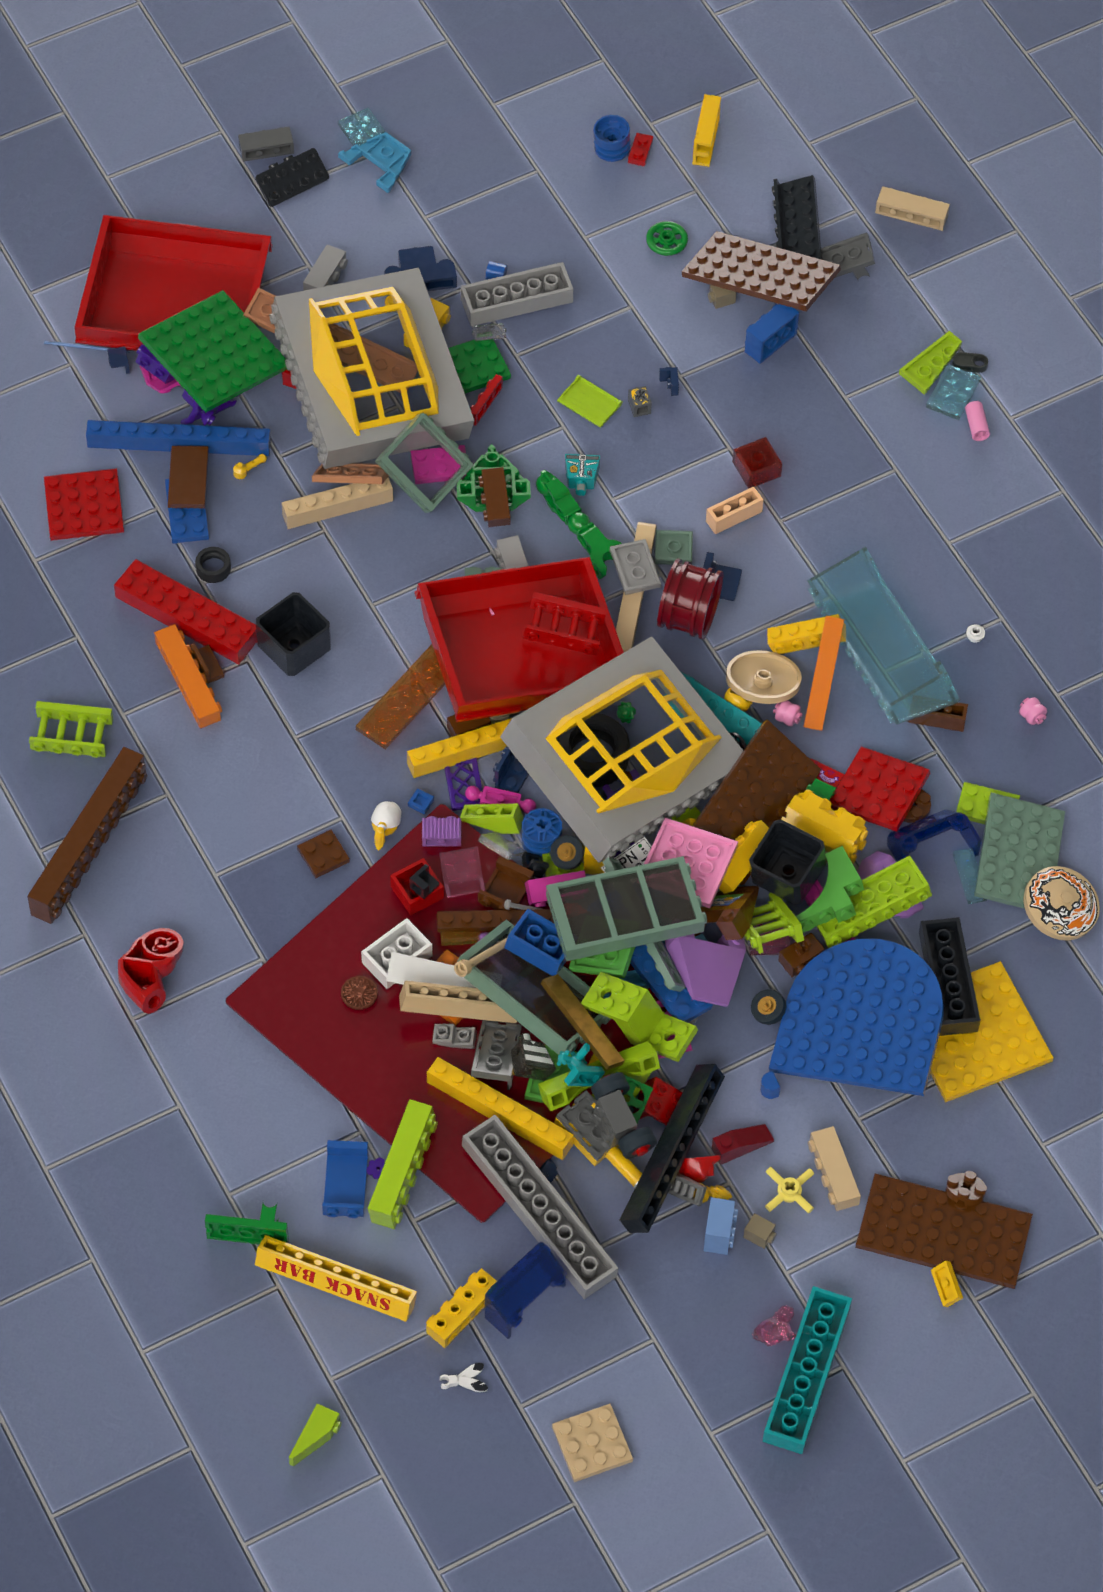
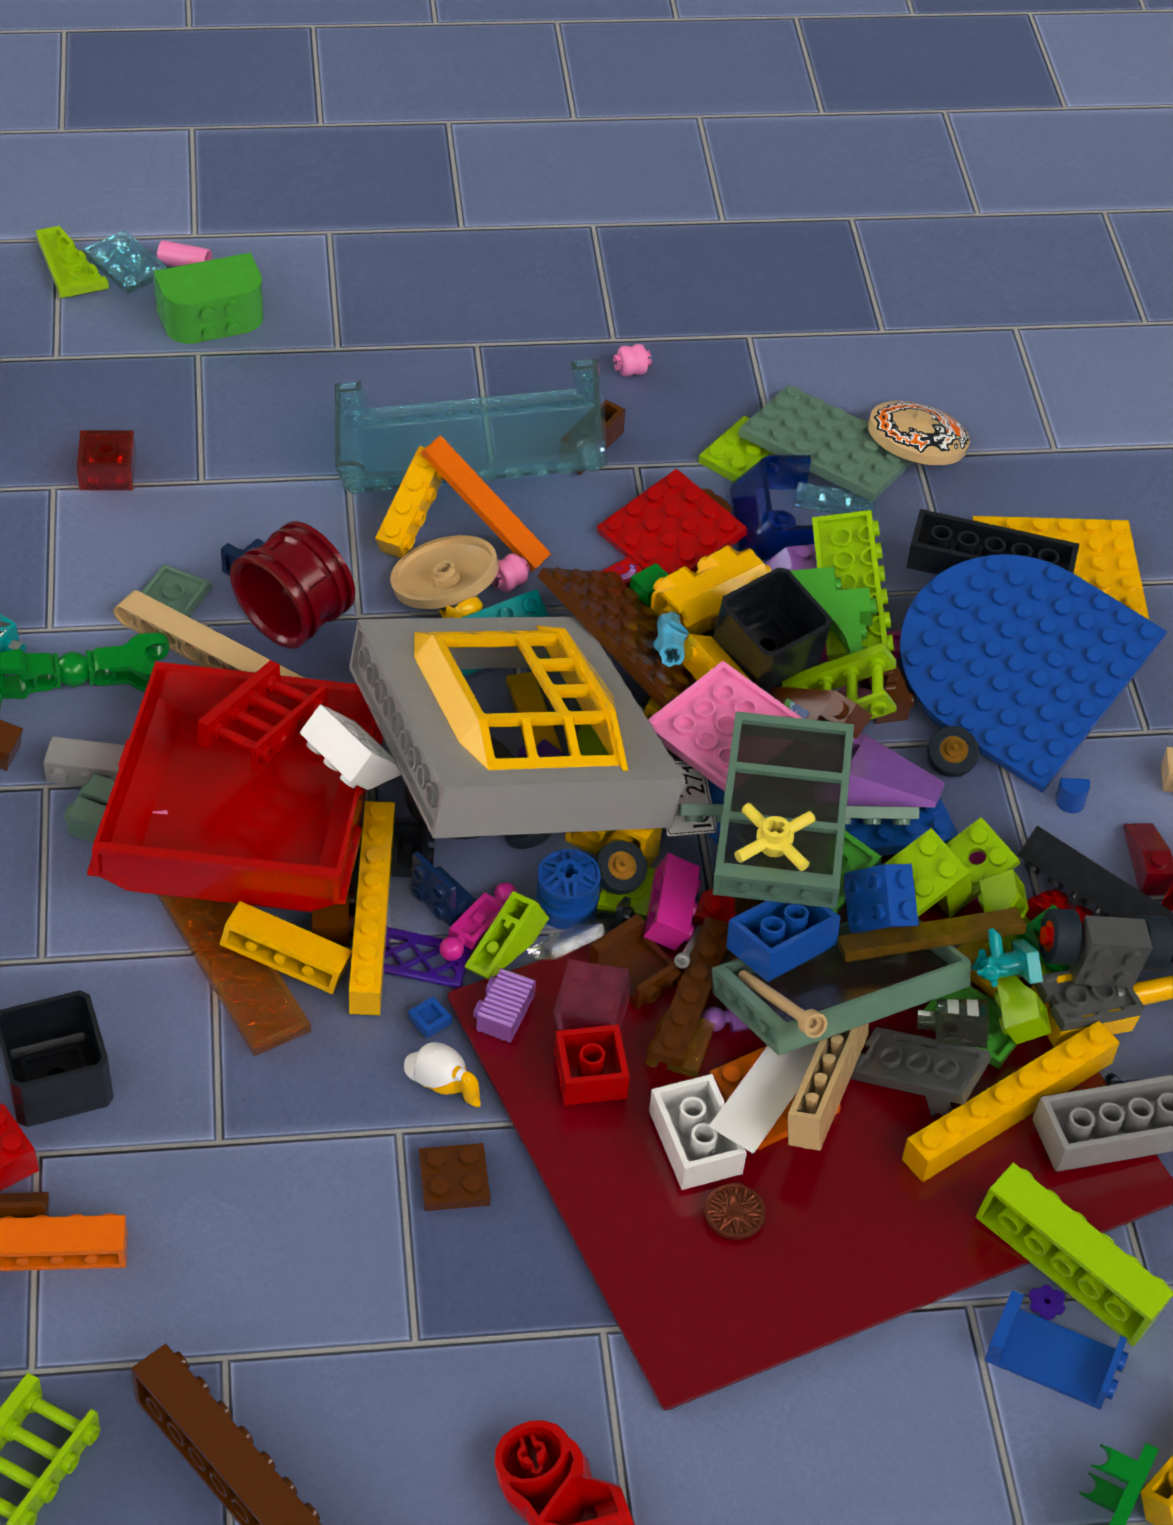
camera: 70 degrees left, 10 degrees down
(423, 882) = (607, 1042): black panel -> none
(427, 708) = (285, 947): none -> yellow brick
(454, 1037) = (861, 1115): light grey slope -> none
(558, 670) = (349, 749): none -> white slope
(583, 903) = (775, 836): none -> light yellow bar
(588, 986) = (880, 898): none -> blue bracket
(635, 567) = (191, 631): light grey tile -> none
(734, 510) = (165, 507): light nougat brick -> none
(747, 813) = (670, 639): none -> medium azure piece
(937, 453) = (210, 298): none -> bright green brick
(966, 362) = (87, 236): pearl dark grey piece -> none
(975, 637) = (488, 370): white plate -> none

